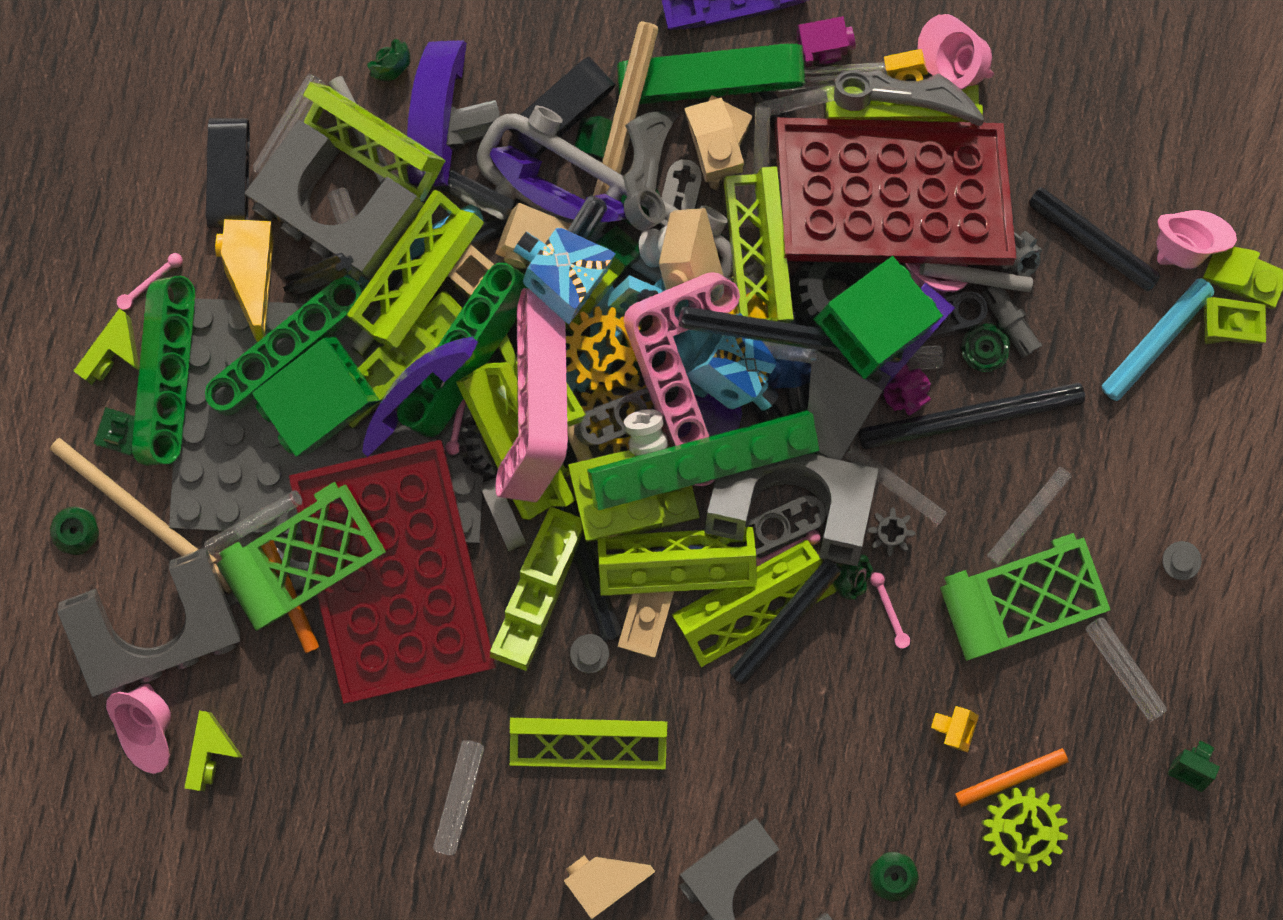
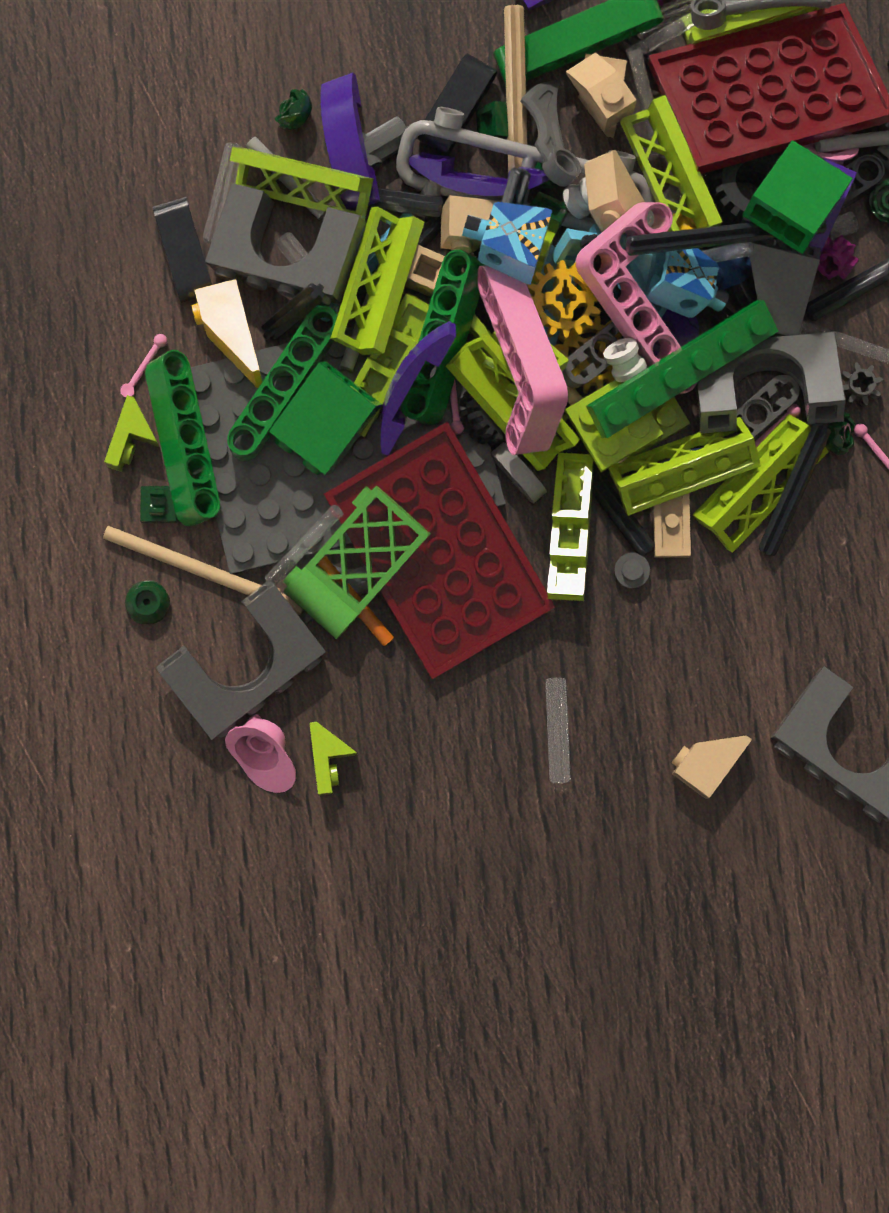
camera: 15 degrees left, 0 degrees up
(593, 728) = (654, 634): lime fence -> none
(671, 186) = (592, 147): light grey beam -> none

